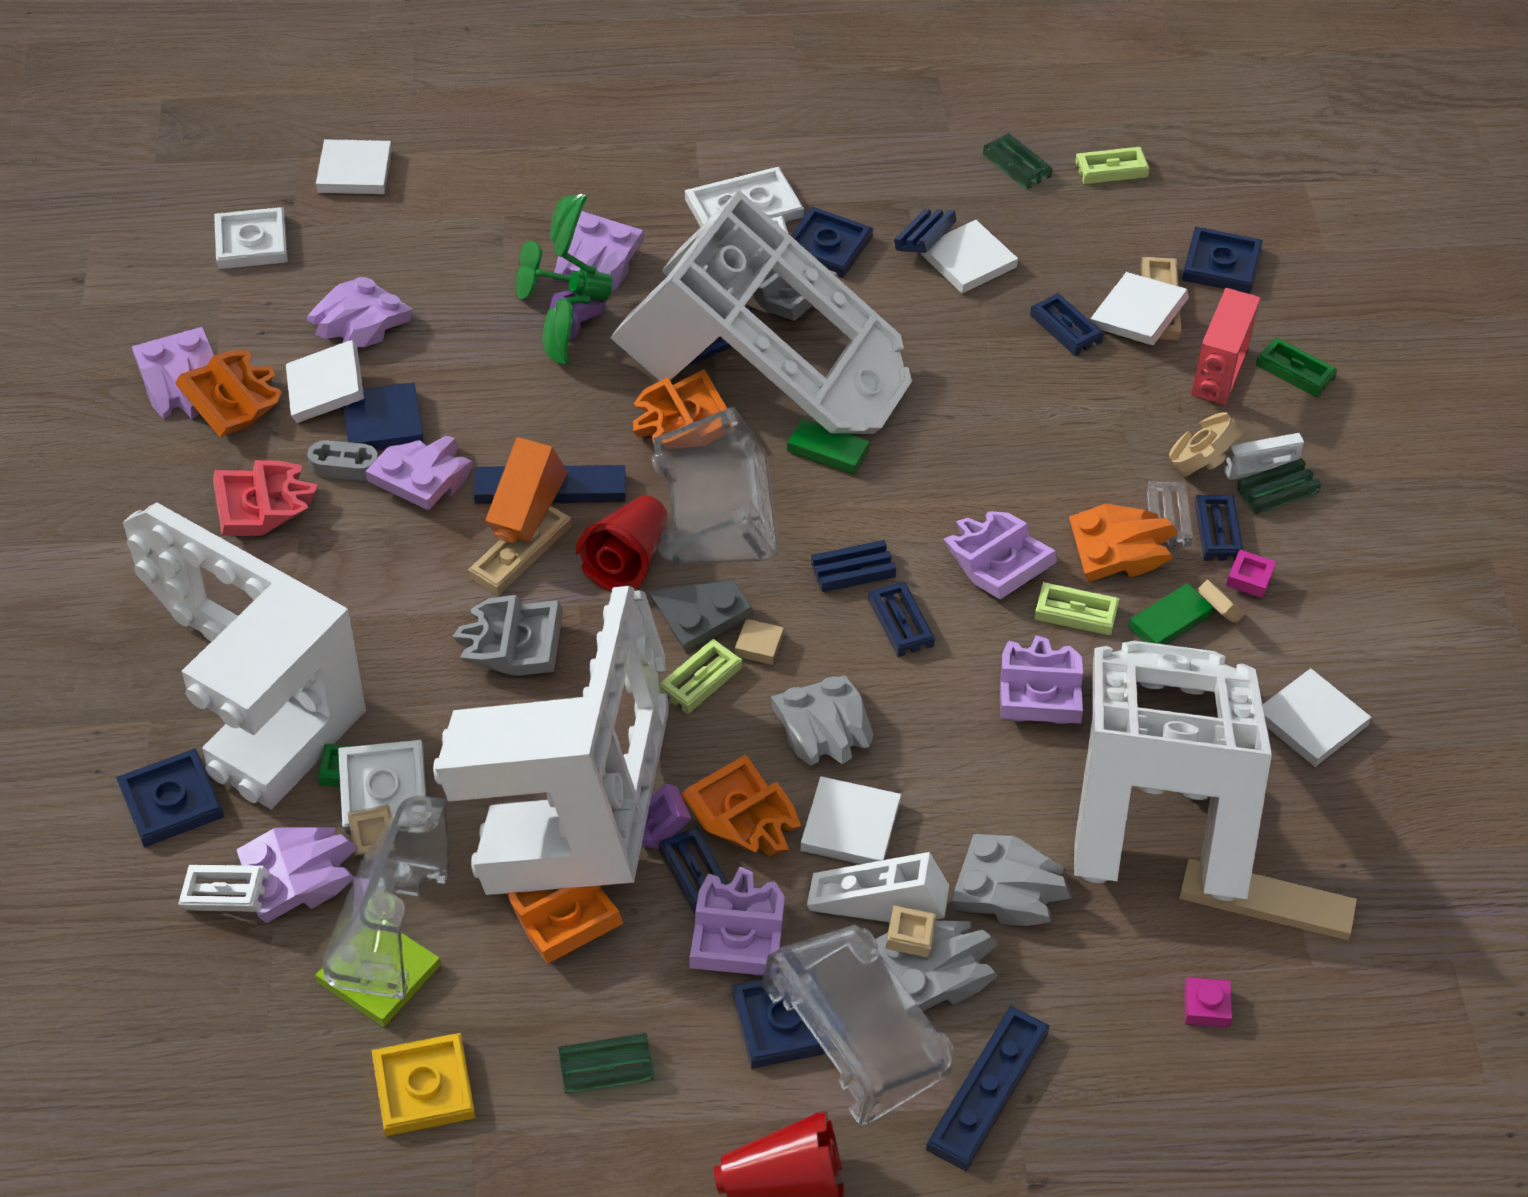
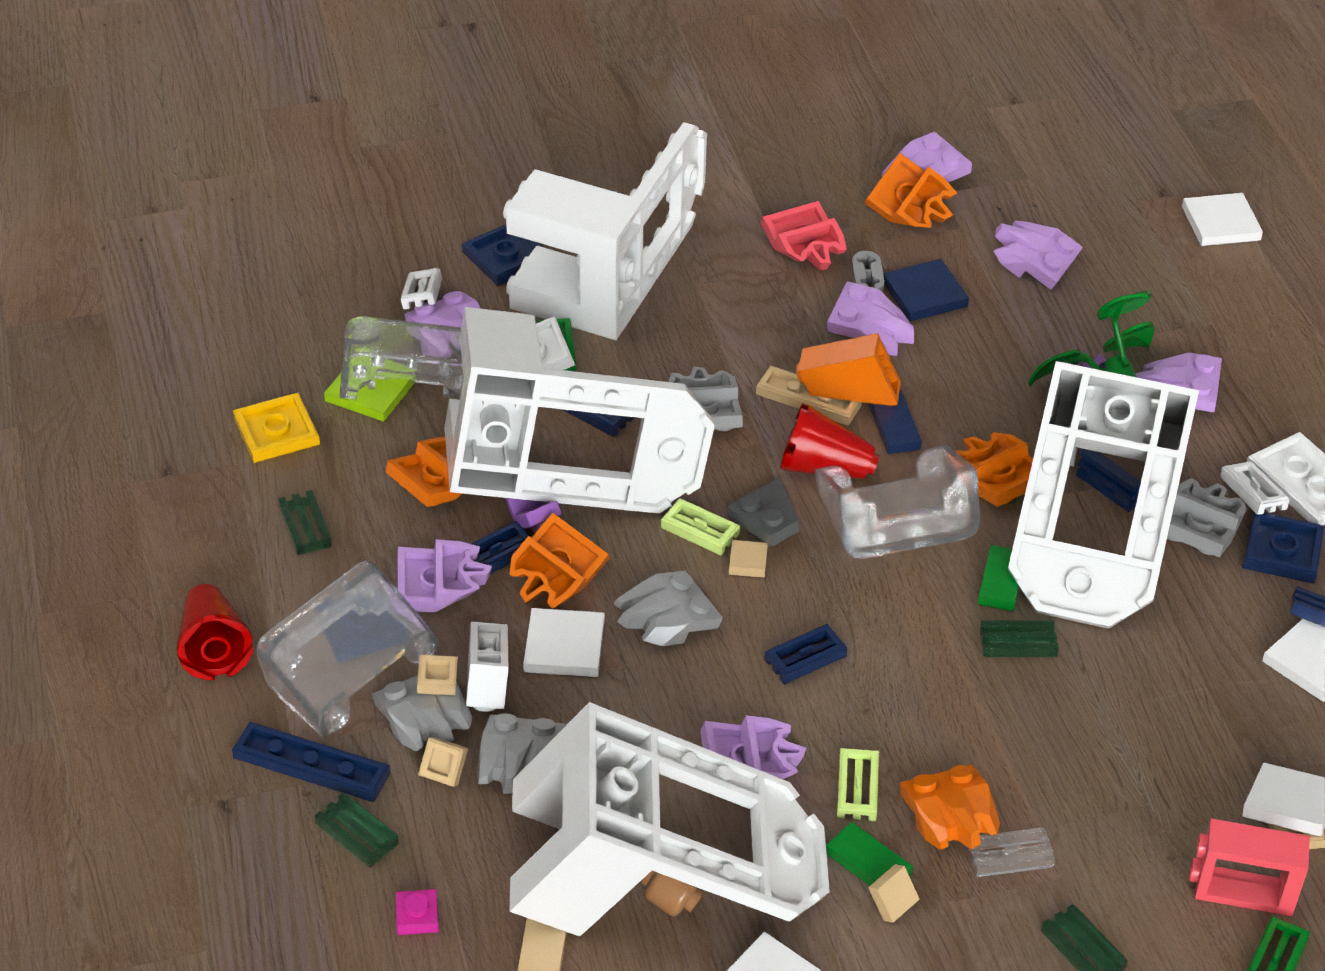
camera: 80 degrees right, 5 degrees down
(250, 238) = (1103, 178): white tile -> none
(324, 381) = (946, 245): white tile -> none
(852, 560) = (863, 609): dark blue tile -> none
(913, 431) = (1018, 633): none -> clear green tile
(999, 553) = (900, 711): lavender plate -> none
(1016, 950) = (443, 761): none -> tan tile
(1061, 325) = (1237, 764): dark blue tile -> none
(1082, 1035) = (347, 804): none -> clear green tile
(1205, 446) = (1090, 856): tan plate -> none
(1220, 549) = (1008, 900): dark blue tile -> none
(1251, 573) = (943, 920): dark pink plate -> none
(1262, 455) = (1113, 921): white tile -> none

